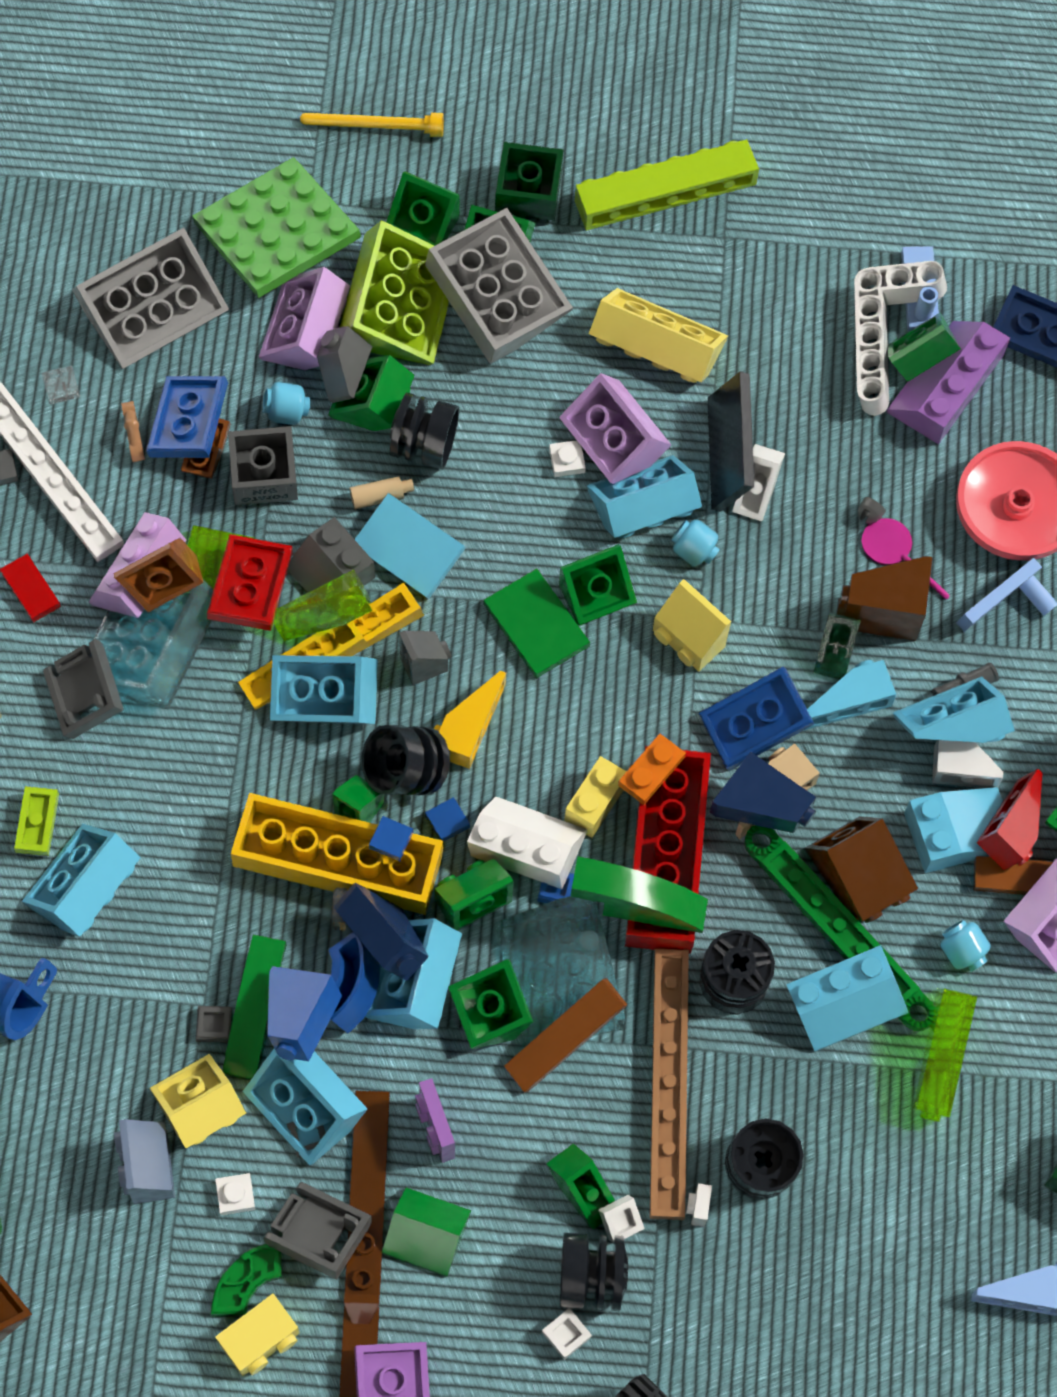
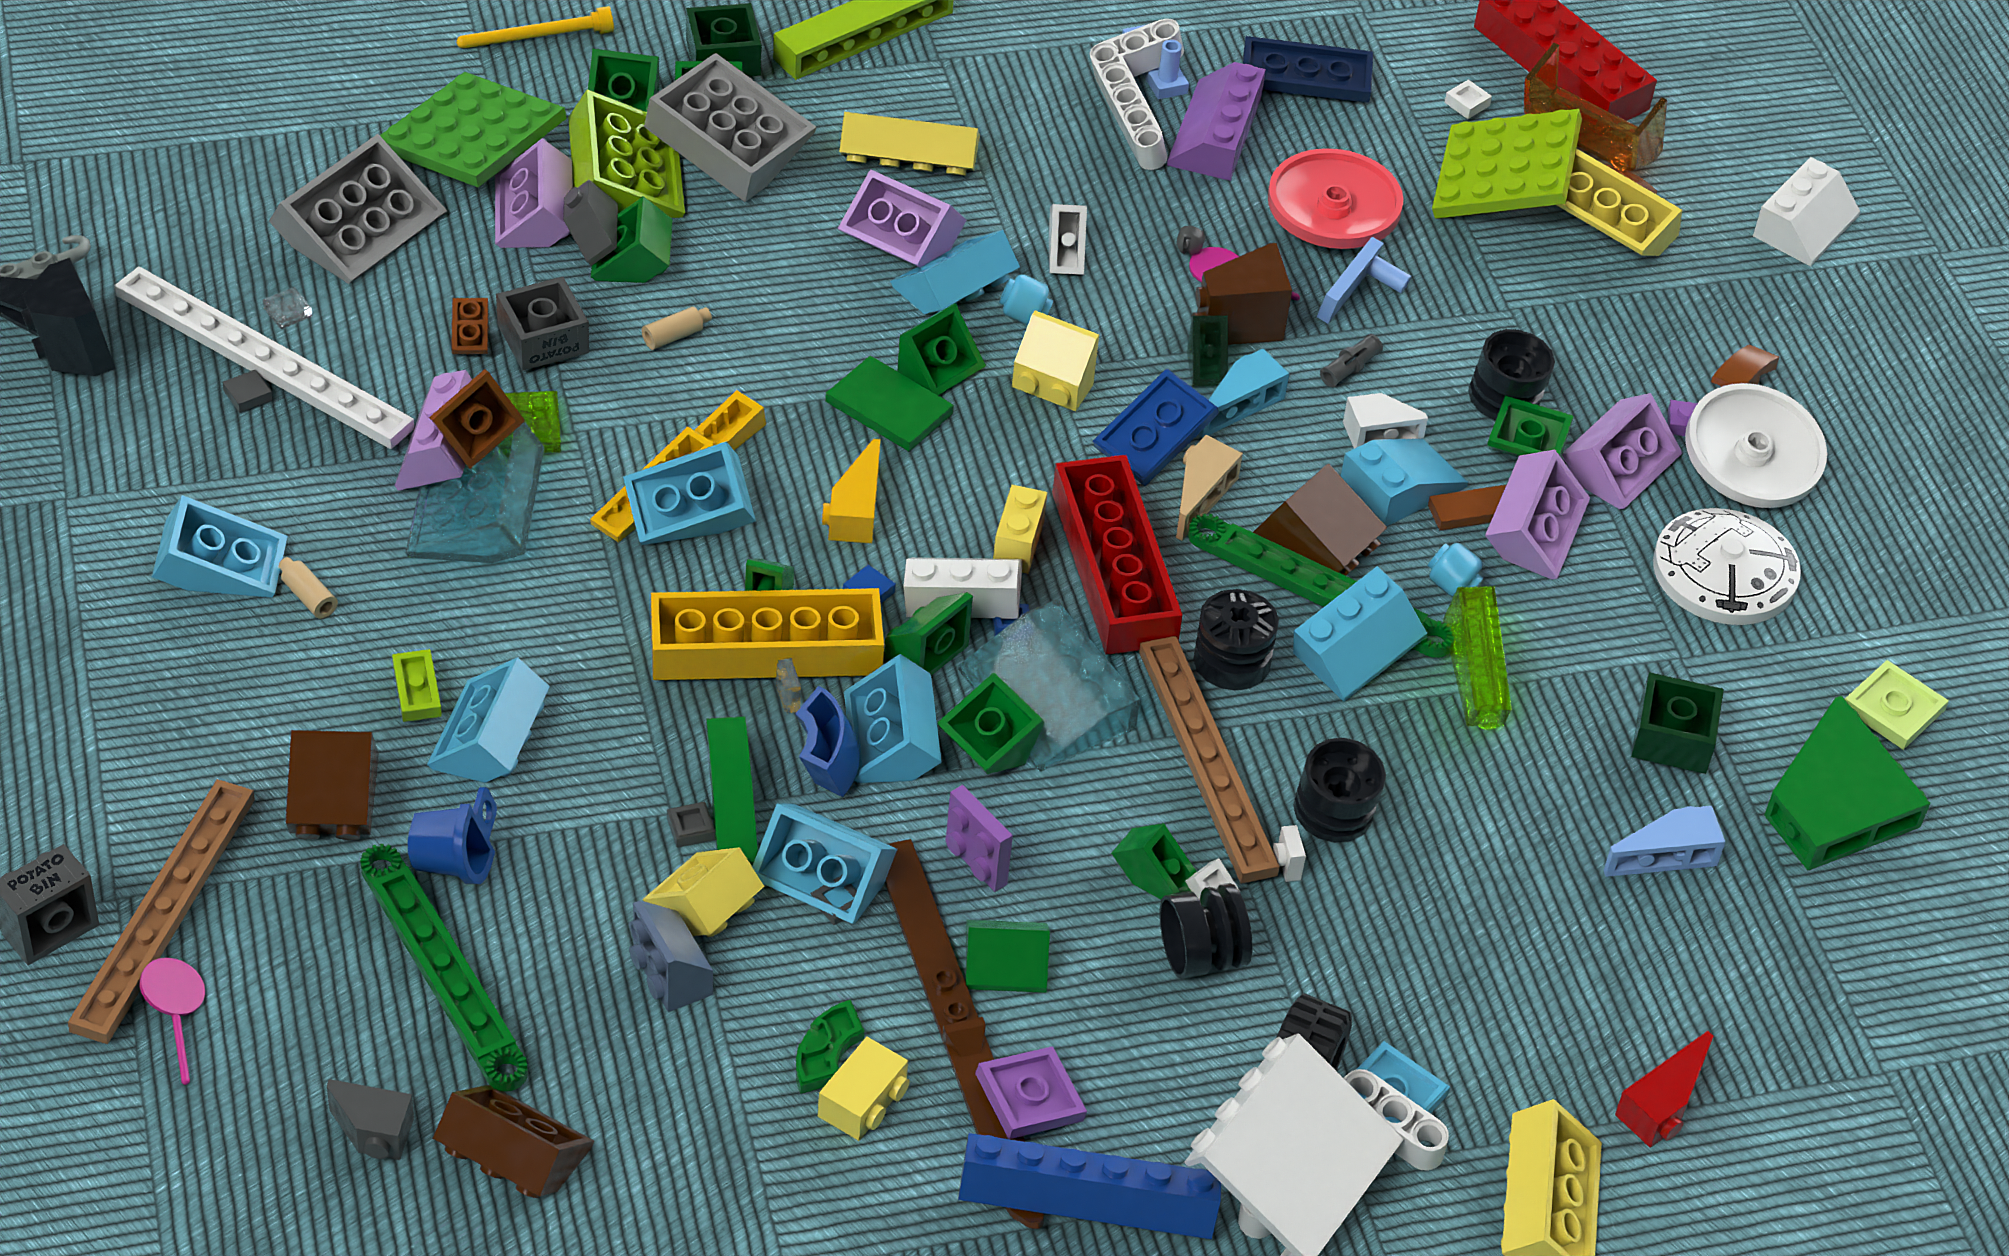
camera: 20 degrees left, 20 degrees down
(30, 588) = (324, 486): red tile -> none
(83, 683) = (420, 551): dark grey container -> none
(132, 428) = (394, 341): medium nougat arm -> none
(187, 417) = (441, 301): blue tile -> none
(235, 1194) = (780, 971): white plate -> none
(249, 582) = (572, 419): red tile -> none
(285, 403) = (542, 265): medium azure head -> none
(299, 1010) = (791, 760): slope -> none
(313, 1227) = (884, 974): dark grey container -> none
(324, 607) = (660, 425): clear neon green slope -> none
(328, 555) = (651, 395): dark grey slope -> none
(382, 930) = (848, 678): dark blue slope -> none
(391, 838) = (823, 594): blue tile -> none
(405, 760) = (807, 529): black wheel -> none
(409, 546) = (724, 361): medium azure tile -> none
(422, 430) = (704, 257): black wheel -> none
(423, 655) = (782, 448): dark grey slope -> none
(565, 1035) = (1083, 730): dark orange tile -> none
(566, 1333) = (1200, 1004): white plate -> none
(567, 458) = (860, 262): white plate -> none
(638, 895) = (1109, 575): green slope -> none
(651, 769) = (1072, 477): orange plate -> none
(730, 441) = (1026, 206): black tile -> none
(764, 798) = (1199, 478): dark blue slope -> none
(922, 347) = (1185, 96): green slope -> none
(963, 714) = (1368, 370): medium azure slope -> none
(1015, 824) = (1458, 455): red slope -> none

